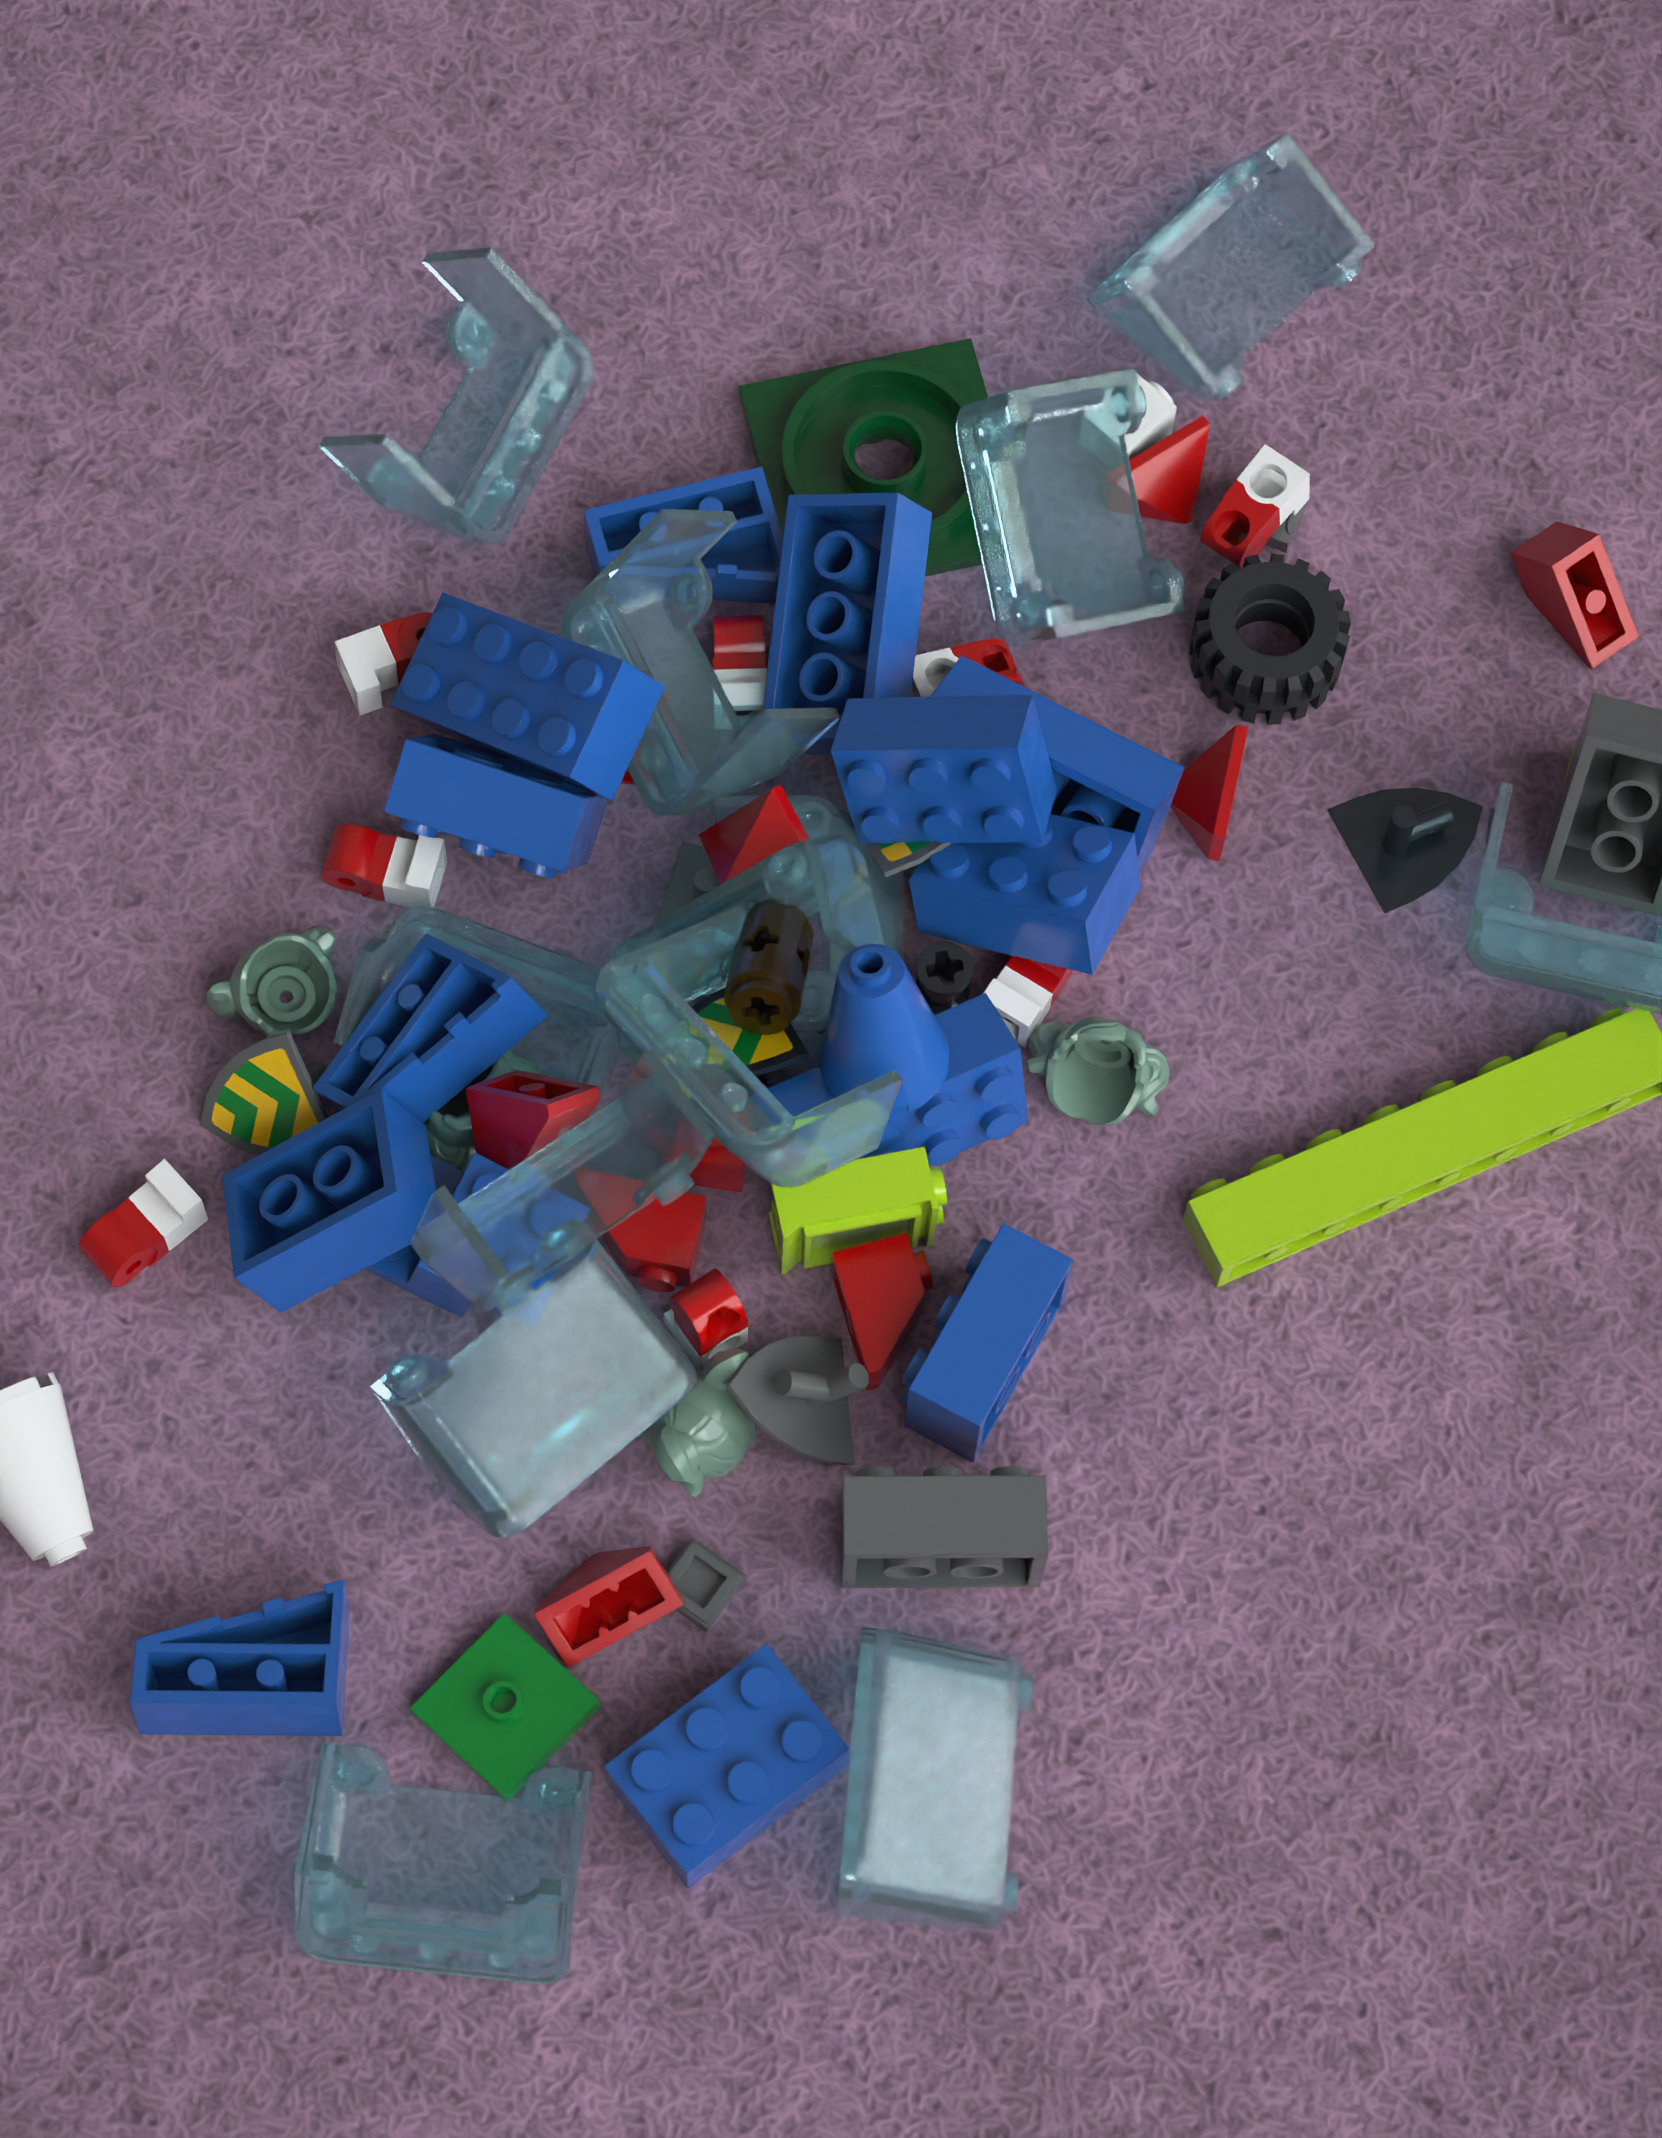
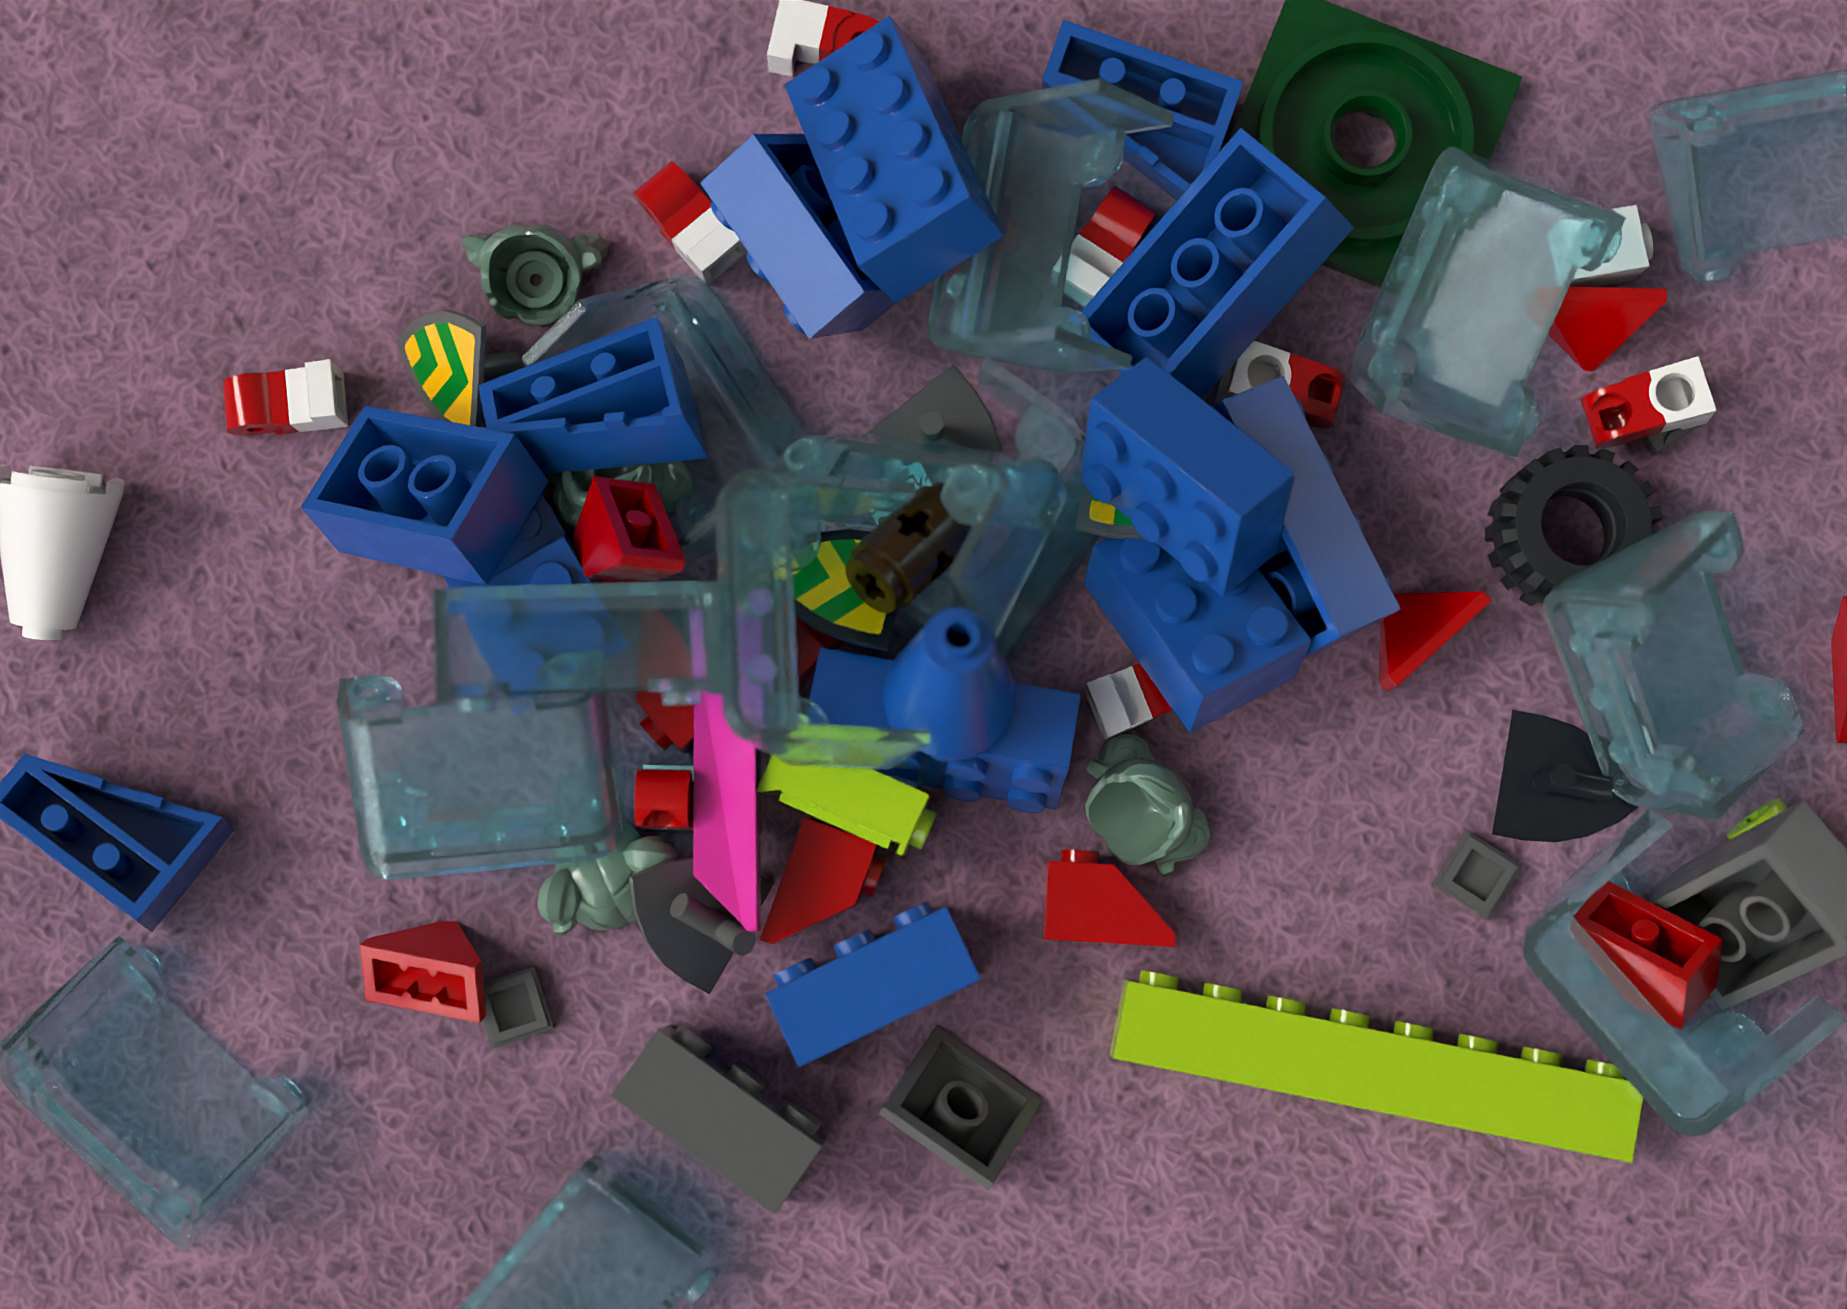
camera: 40 degrees right, 15 degrees up
(505, 1707) = (291, 999): green plate -> none
(727, 1765) = (420, 1178): blue brick -> none
(752, 834) = (986, 419): red slope -> none
(760, 1264) = (727, 814): none -> dark pink wedge
(958, 968) = (1064, 622): black bush -> none
(1120, 1168) = (1097, 904): none -> red slope
(1129, 1407) = (961, 1107): none -> dark grey slope
(1396, 950) = (1476, 875): none -> dark grey tile
(1415, 693) = (1664, 674): none -> clear light blue windscreen
(1579, 891) = (1656, 950): none -> red slope

